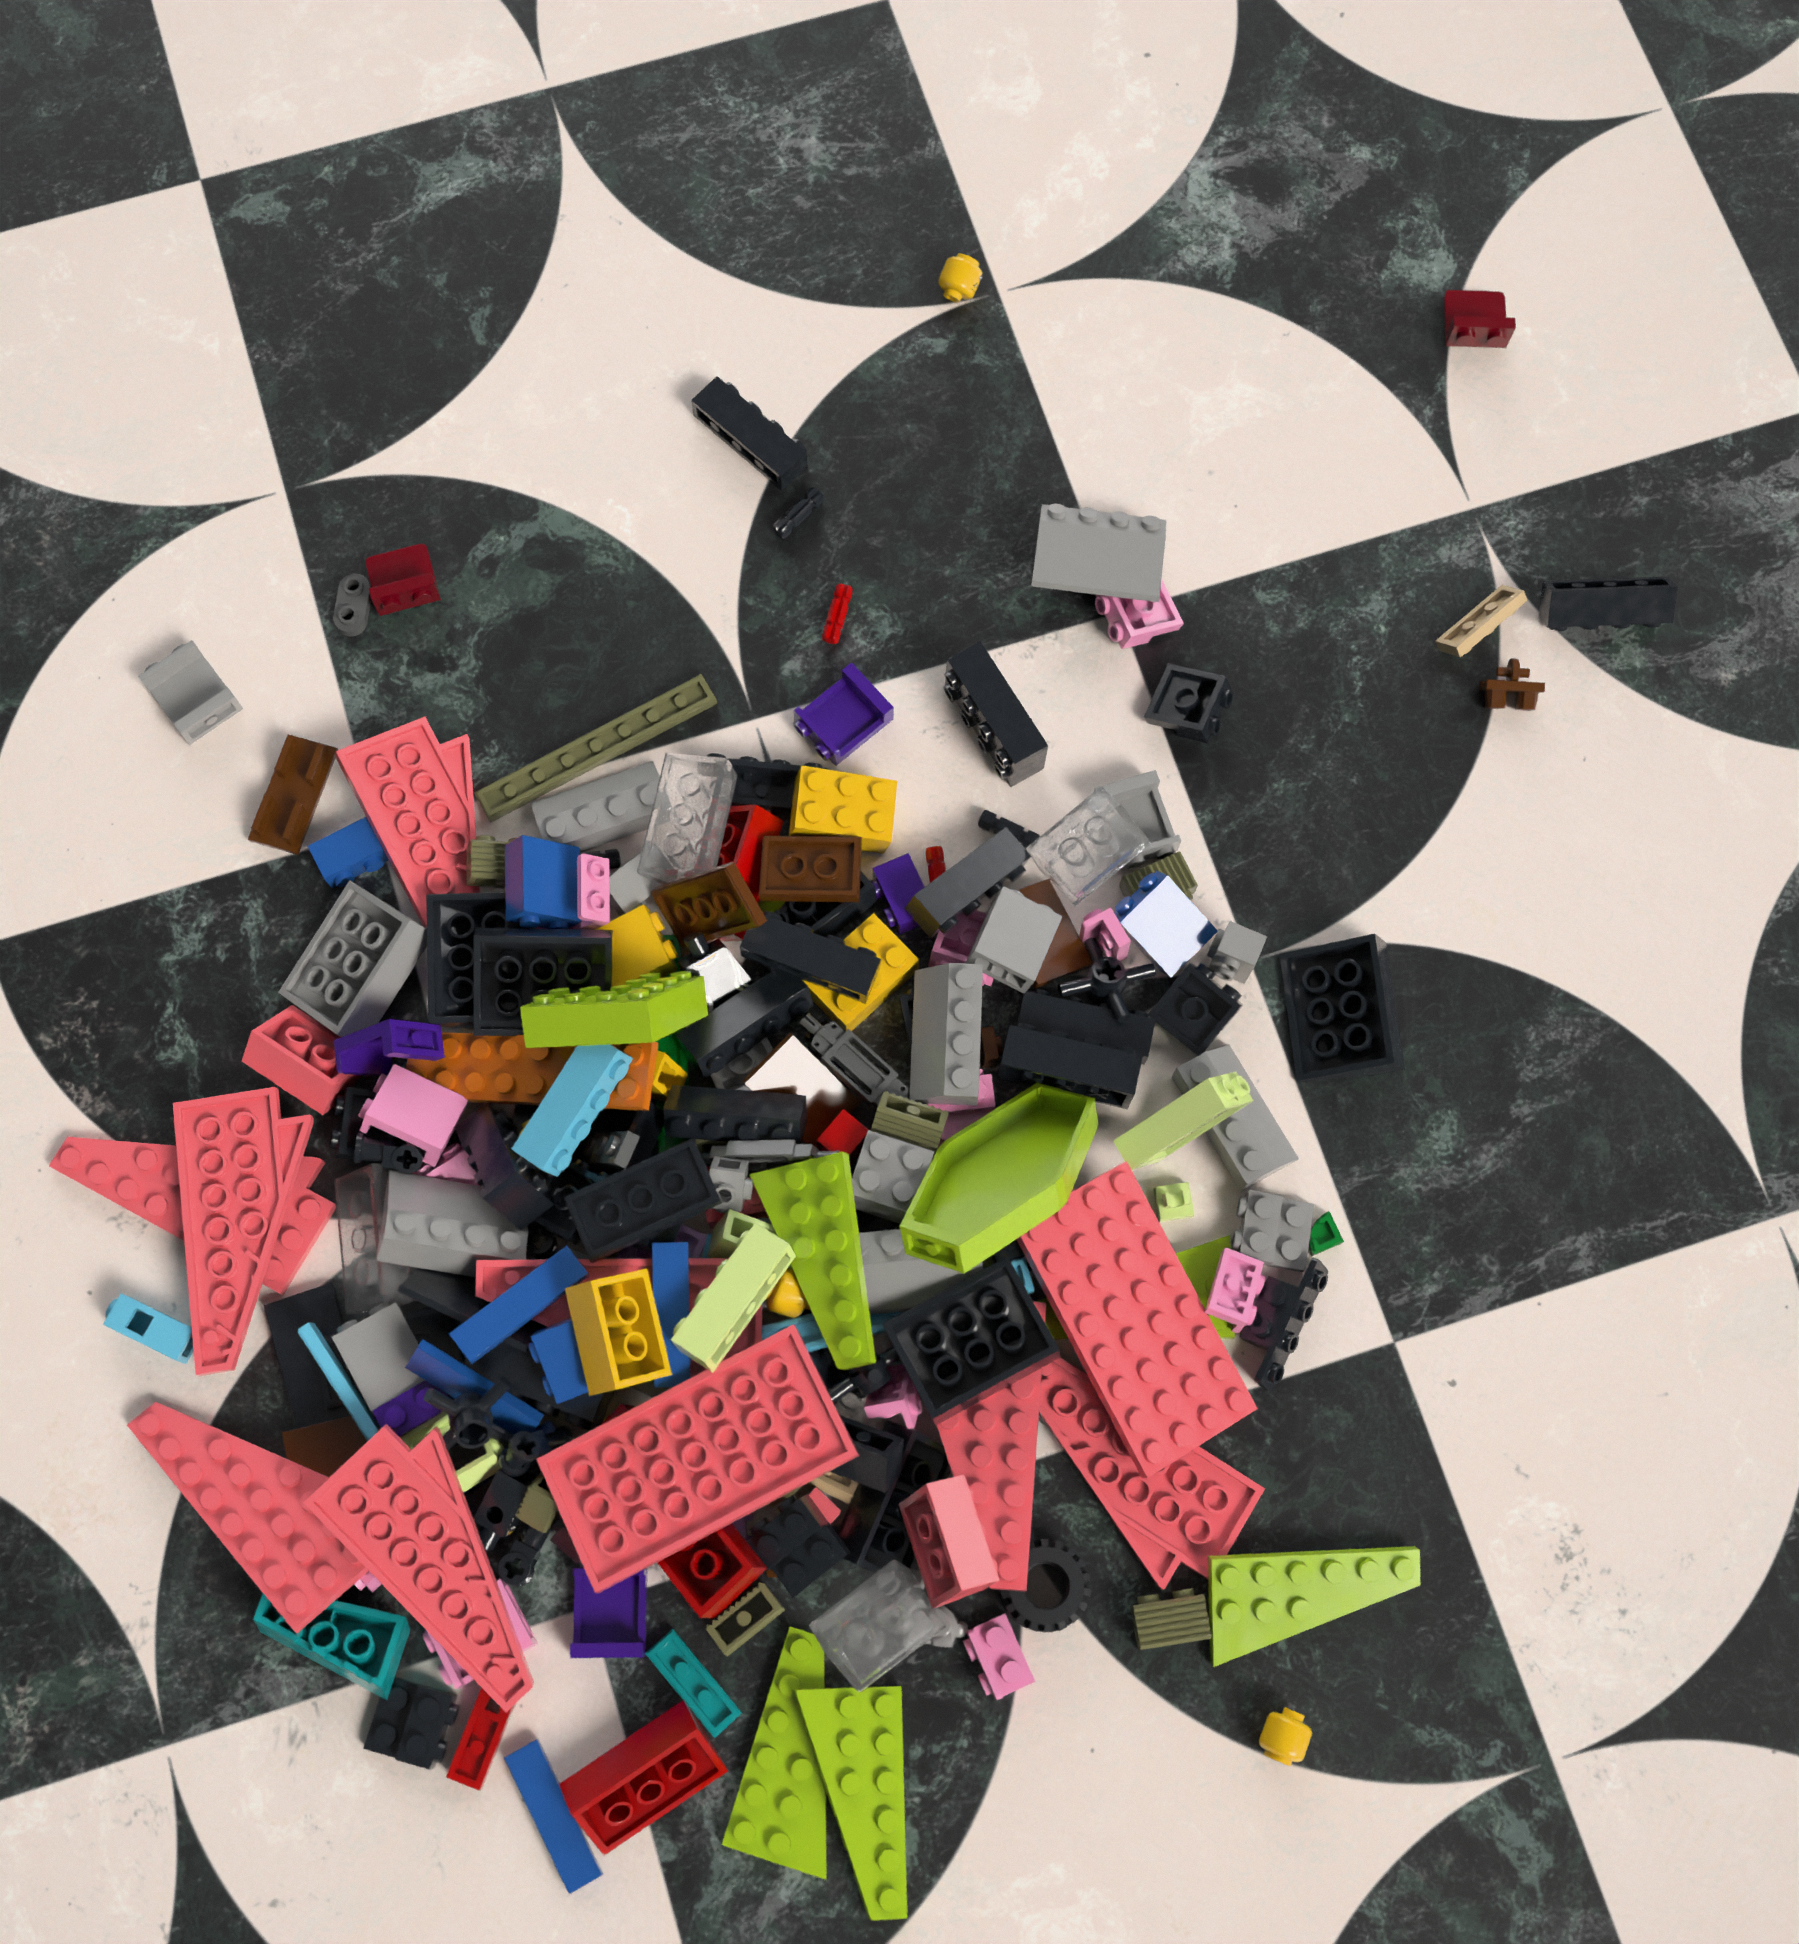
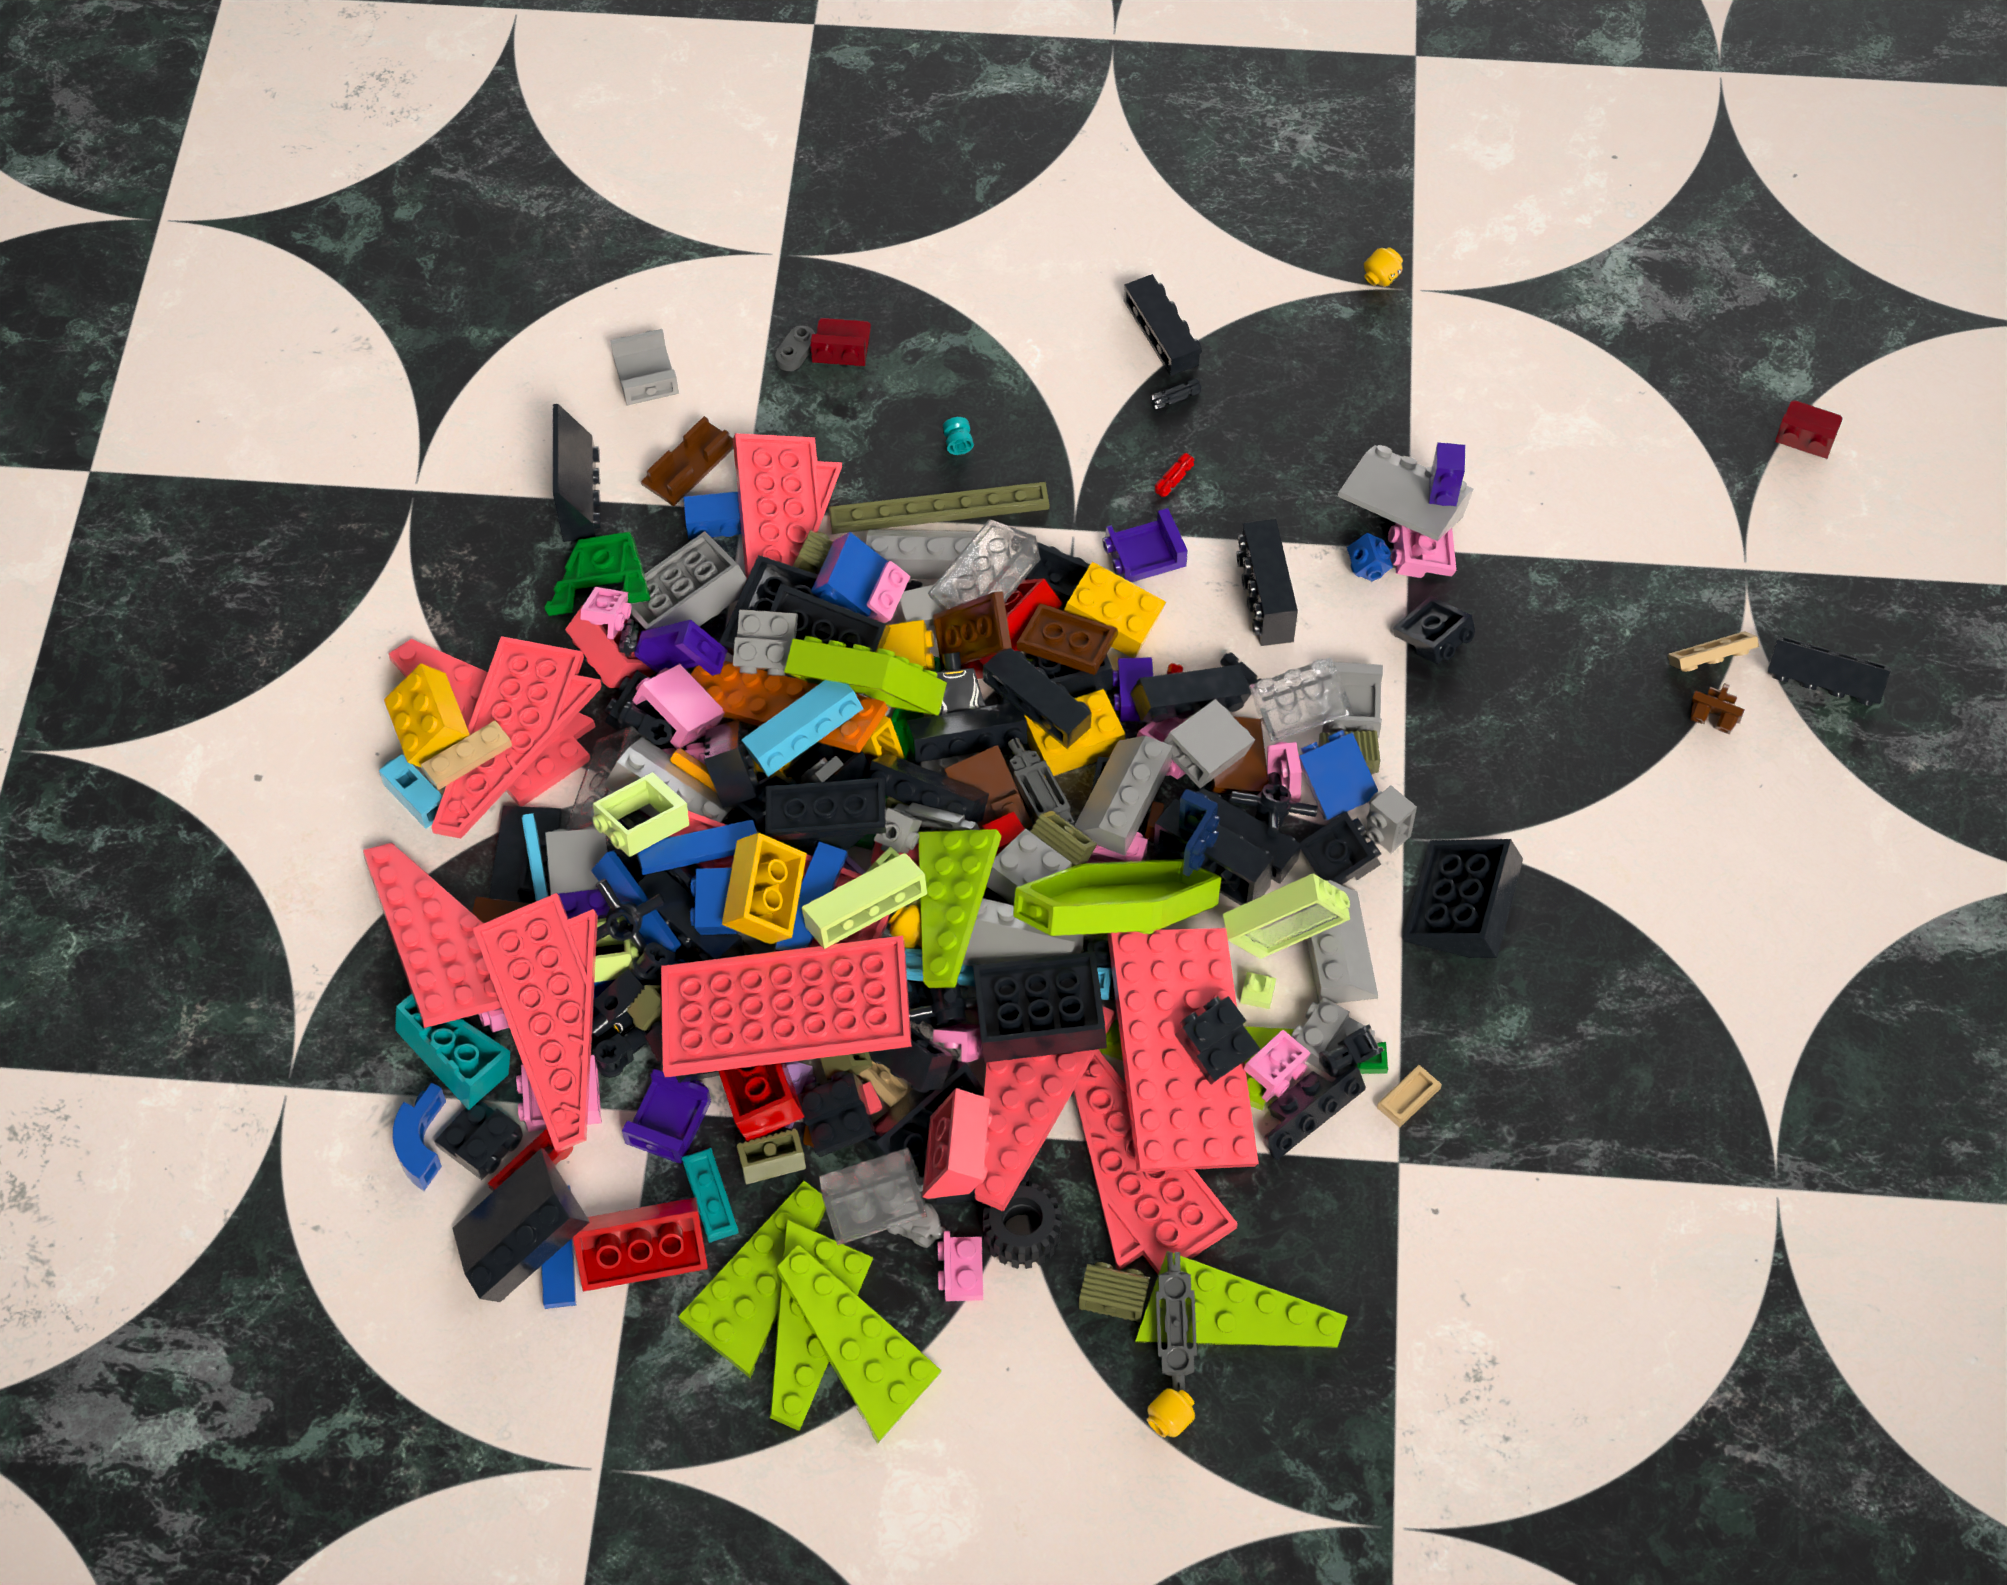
camera: 25 degrees right, 15 degrees down
(130, 1238) = (425, 714): none -> yellow brick
(171, 868) = (575, 477): none -> black slope
(197, 1271) = (466, 755): none -> tan plate
(247, 960) = (598, 563): none -> green wing
(282, 1027) = (607, 607): none -> bright pink bracket
(321, 1050) = (629, 637): none -> black axle
(334, 1761) = (408, 1136): none -> blue arch
(418, 1278) = (632, 797): none -> yellowish green window
(456, 1181) = (692, 767): none -> light orange tile
(483, 1008) = (764, 641): none -> light grey plate
(503, 1827) = (517, 1228): none -> black slope
(582, 652) = (958, 436): none -> teal wheel
(832, 1100) = (1010, 804): none -> reddish brown plate
(944, 1805) = (865, 1351): none -> lime wing
(1056, 1047) = (1200, 818): none -> dark blue bracket
(1088, 642) = (1369, 557): none -> blue brick
(1145, 524) = (1447, 474): none -> dark purple brick
(1170, 1298) = (1217, 1039): none -> black plate
(1240, 1604) = (1175, 1288): none -> dark grey piece
(1307, 1240) = (1354, 1048): none -> black connector
(1376, 1262) = (1409, 1096): none -> tan tile

